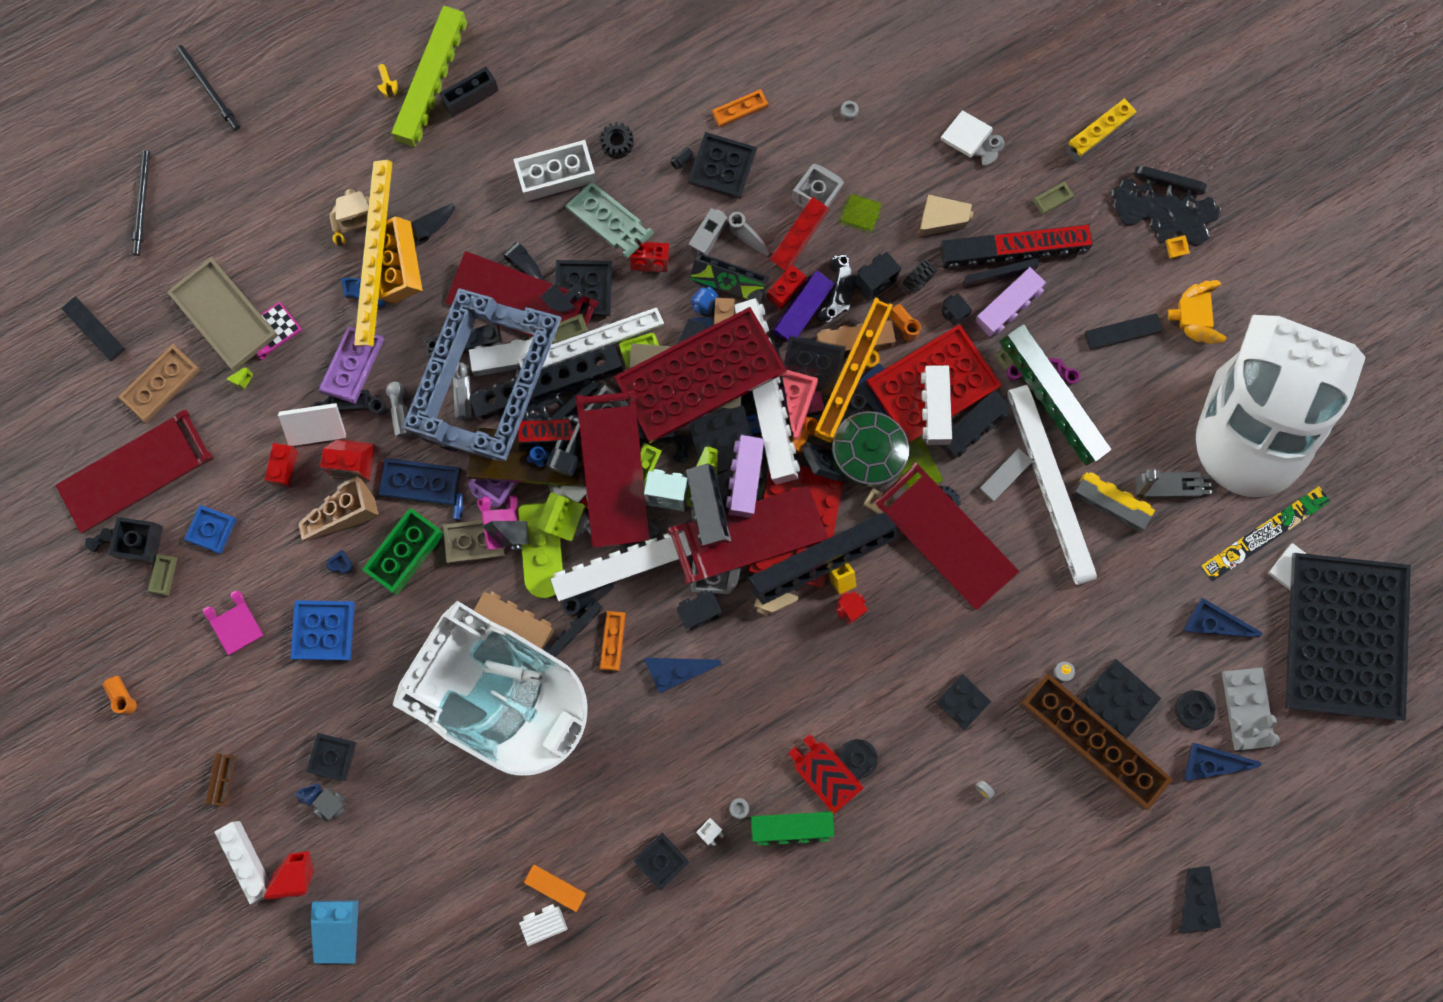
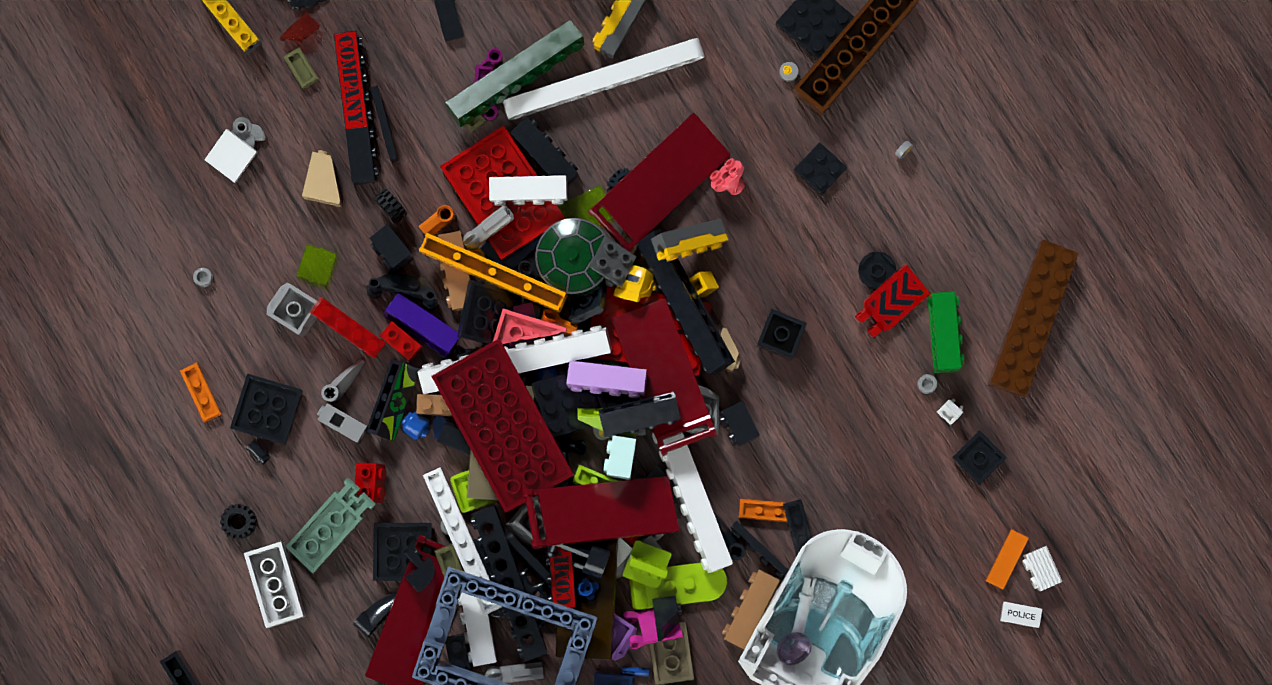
camera: 90 degrees left, 5 degrees up
(466, 661) = (797, 651): none -> clear purple piece
(497, 901) = (1021, 614): none -> white tile
(598, 669) = (797, 524): none -> black tile
(673, 671) = (798, 452): dark blue wing -> none
(791, 656) = (781, 334): none -> black brick
(807, 924) = (1033, 318): none -> reddish brown brick
(842, 509) = (637, 284): none -> yellow helmet
(850, 606) = (732, 276): red brick -> none
(864, 485) = (612, 262): none -> dark grey hinge
(888, 563) = (689, 239): none -> piece
(898, 367) = (488, 227): none -> light grey piece
(952, 606) = (728, 177): none -> coral plate
(955, 309) = (423, 170): black brick -> none
(1005, 475) = (594, 123): light grey tile -> none
(1013, 299) = (415, 114): lavender brick -> none
(1092, 197) = (300, 29): none -> clear red slope

